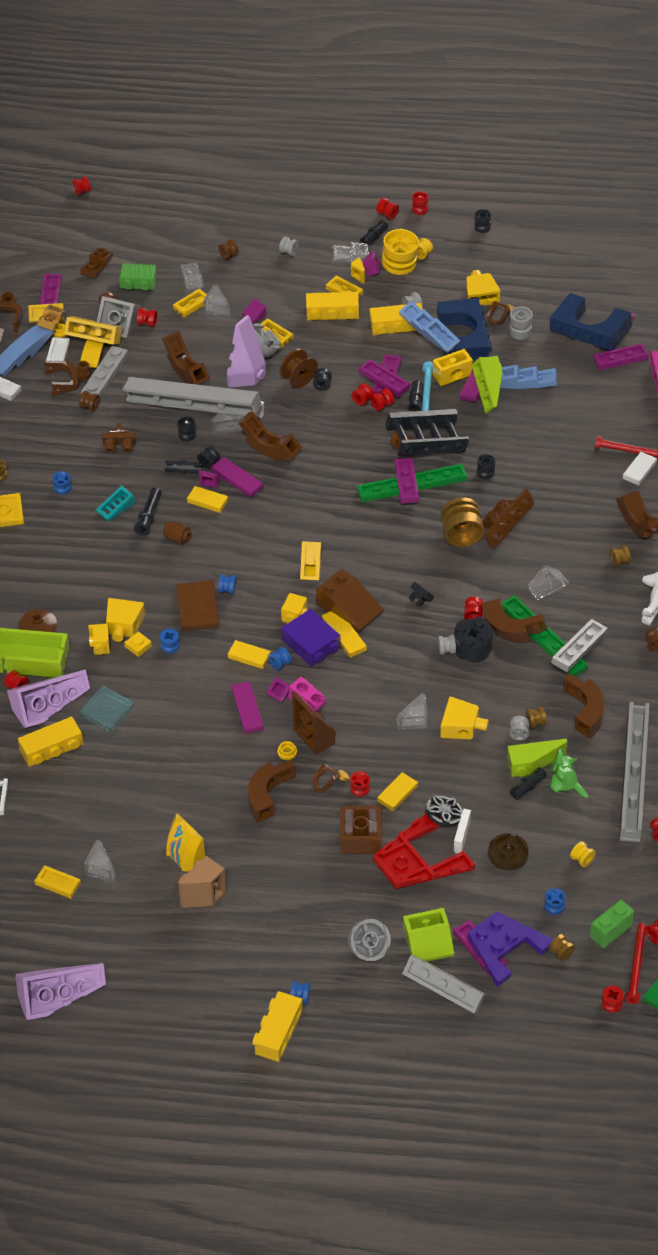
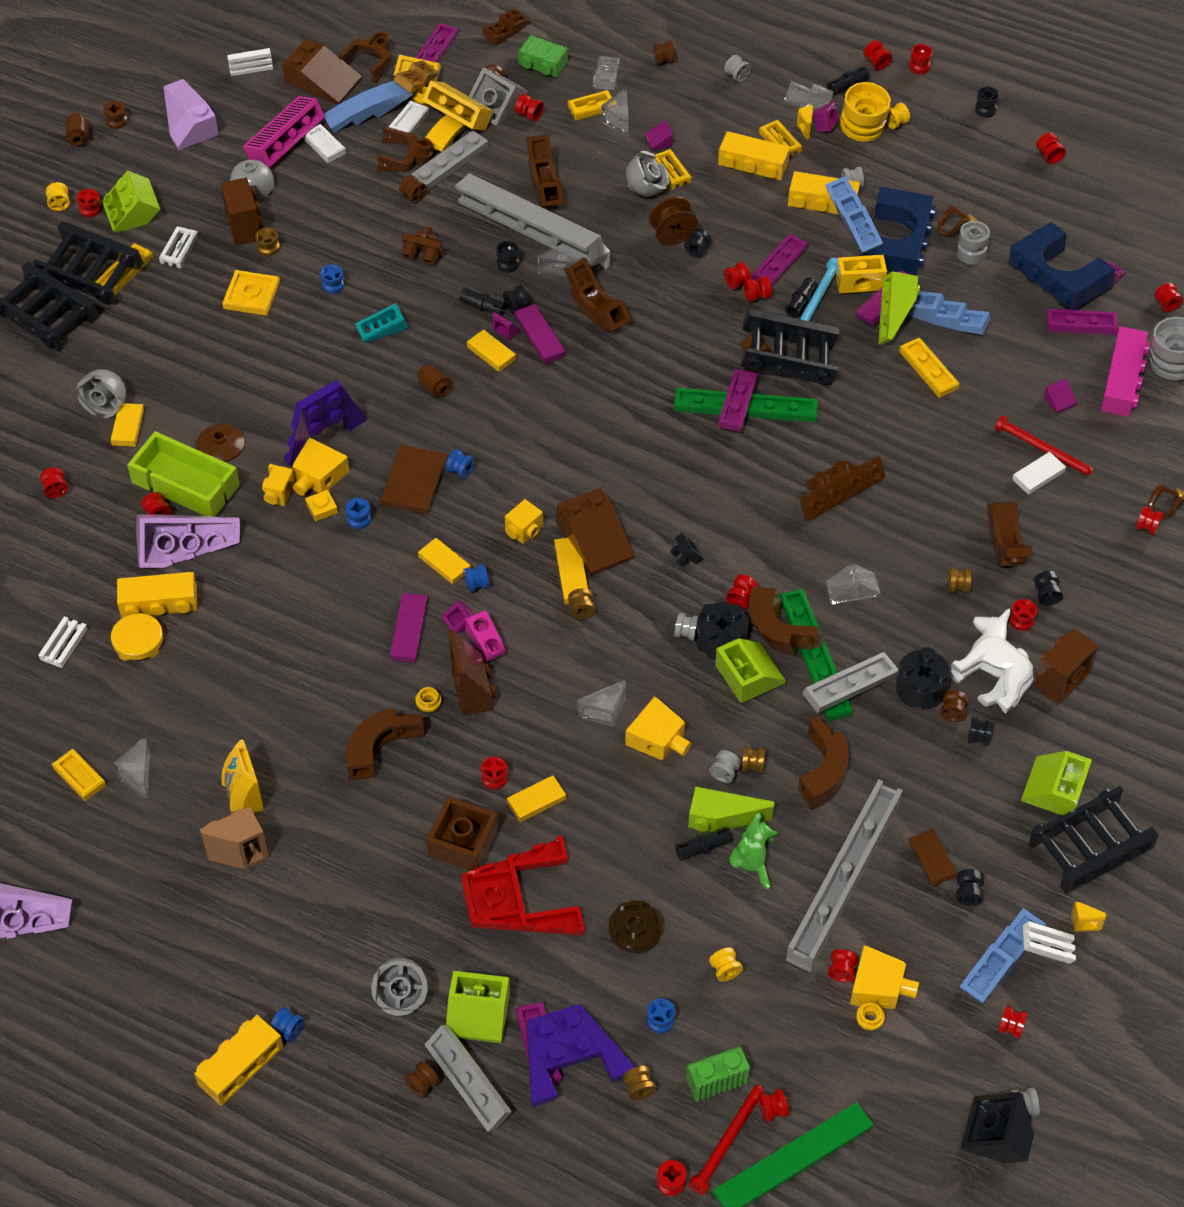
camera: 20 degrees right, 5 degrees up
(50, 775) = (137, 637): none -> yellow tile
(106, 708) = (244, 574): clear light blue tile -> none
(110, 576) = (319, 411): none -> dark purple wing
(146, 517) = (408, 350): black pin -> none
(247, 358) = (613, 191): lavender wedge -> none
(310, 560) = (572, 466): yellow slope -> none
(311, 637) = (526, 563): dark purple brick -> none
(338, 775) = (477, 753): reddish brown piece -> none
(364, 652) = (581, 603): none -> pearl gold wheel
(384, 377) = (773, 263): magenta tile -> none
(412, 995) = (421, 1079): none -> reddish brown wheel
(444, 810) = (580, 844): wheel -> none
(462, 522) = (778, 474): pearl gold wheel -> none
(462, 830) = (589, 879): white tile -> none
(482, 287) = (945, 185): yellow torso -> none
(486, 466) = (844, 412): black wheel -> none
(502, 660) = (747, 669): none -> lime slope
(529, 419) = (929, 367): none -> yellow tile
(543, 241) = (1050, 148): none -> red wheel
(627, 628) = (922, 678): none -> black brick
(630, 412) = (1060, 396): none -> magenta slope

